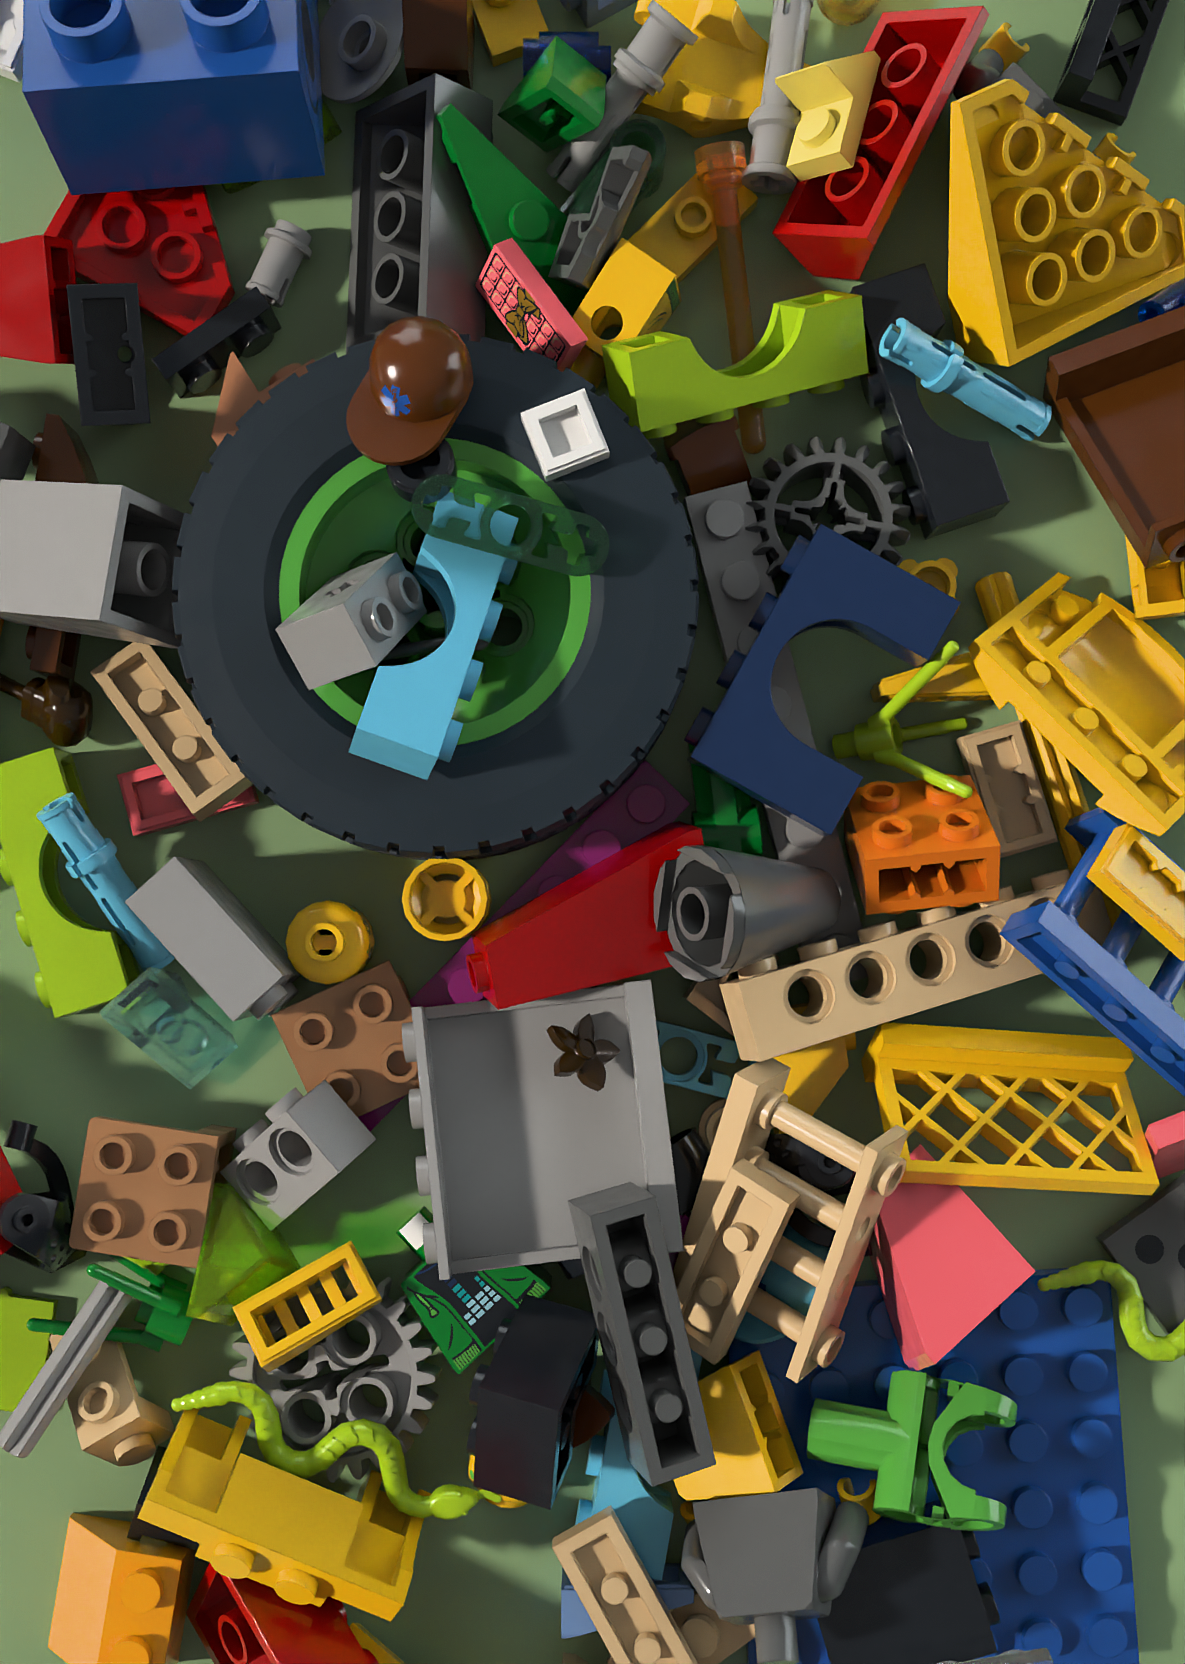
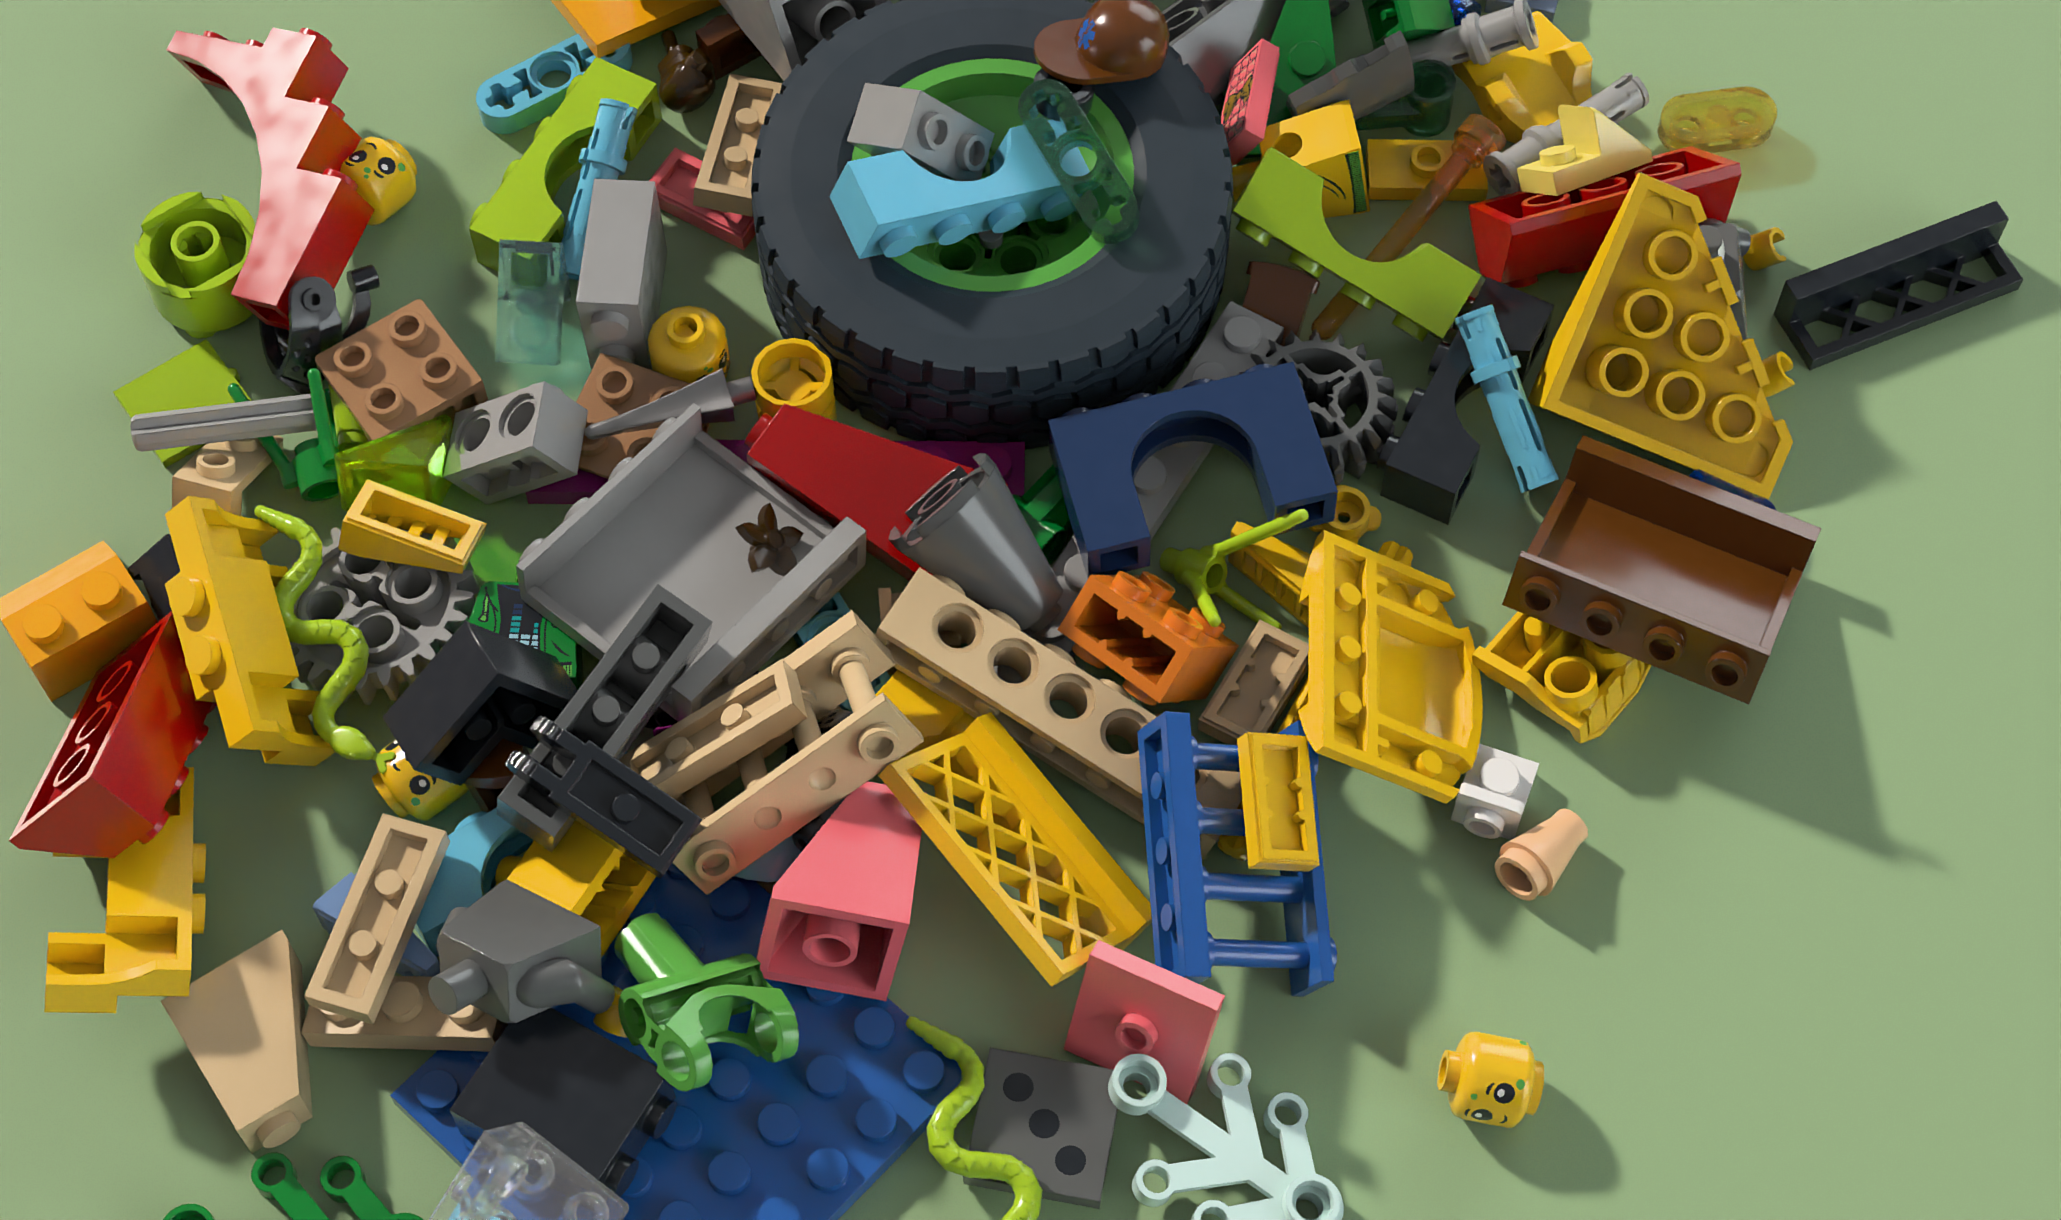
camera: 50 degrees right, 25 degrees down
(401, 987) = (709, 393): none -> flat silver piece
(565, 435) = (1174, 152): white tile -> none
(731, 1409) = (609, 798): none -> black hinge

